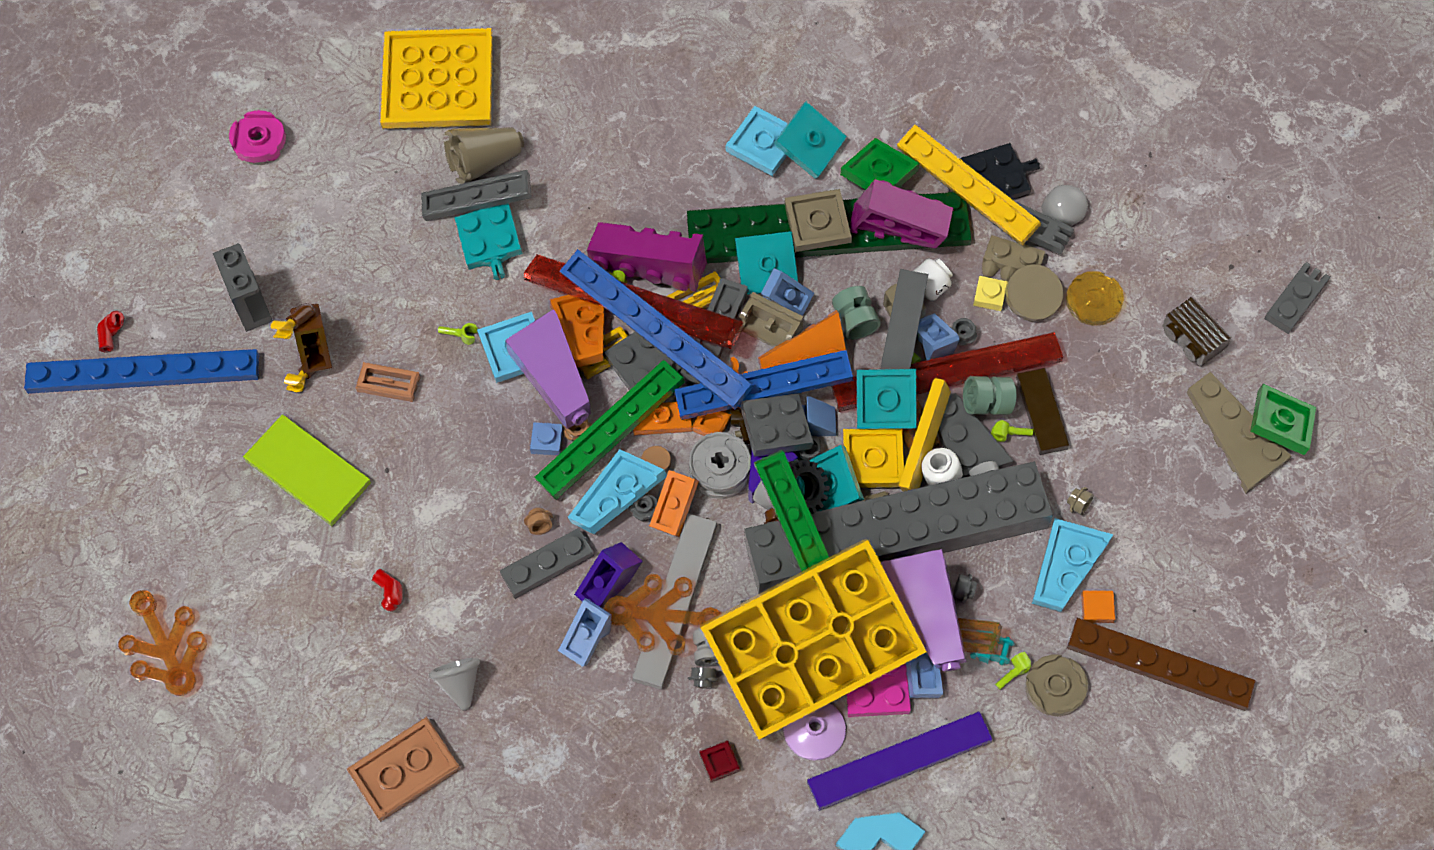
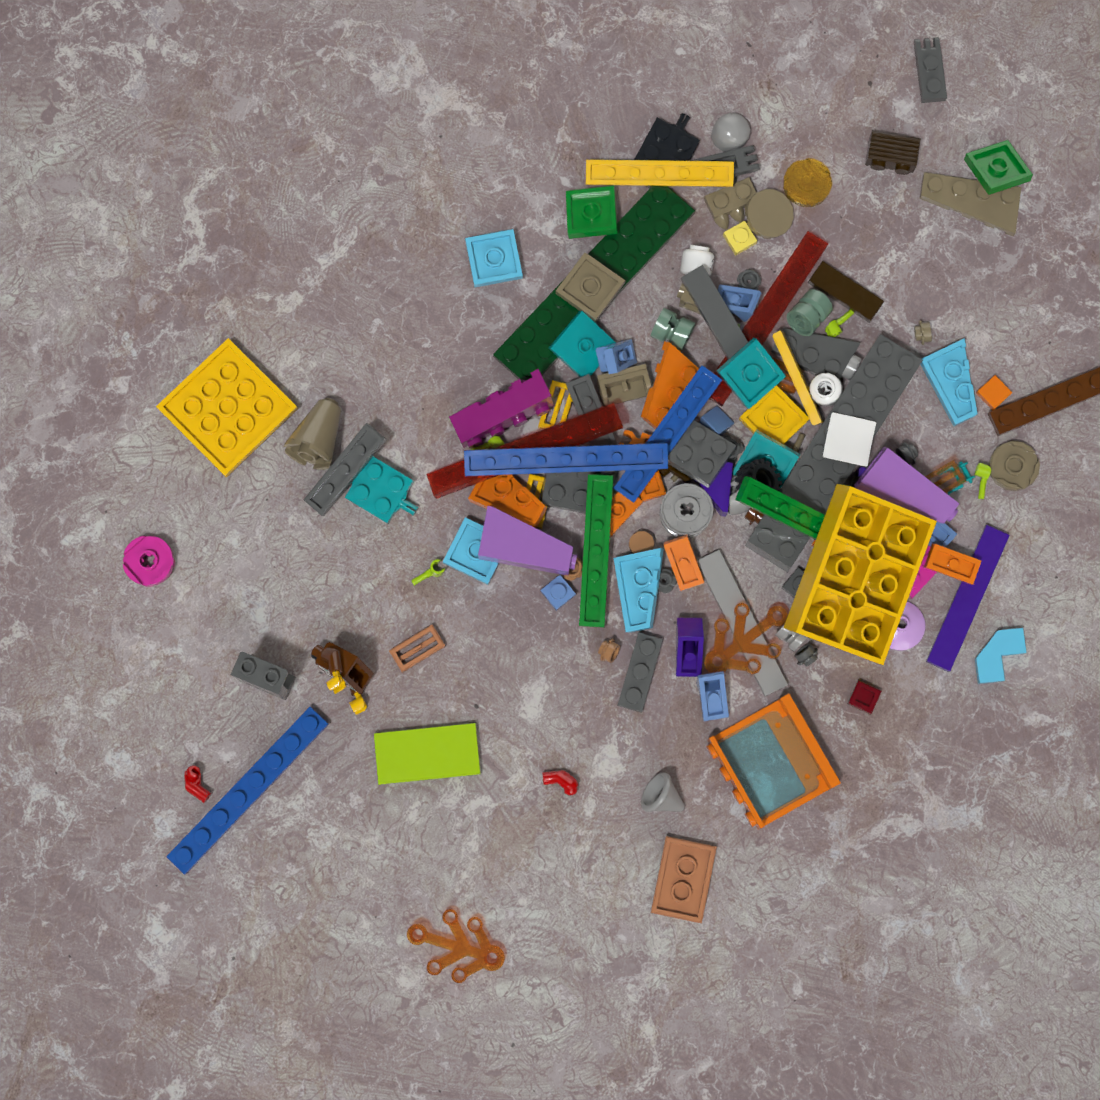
camera: 45 degrees left, 15 degrees up
(579, 741) = (772, 762): none -> clear light blue panel
(810, 139) = (526, 231): teal plate -> none
(901, 214) = (642, 236): magenta wedge -> none
(911, 712) = (952, 564): none -> orange plate
(918, 520) = (849, 439): none -> white sticker

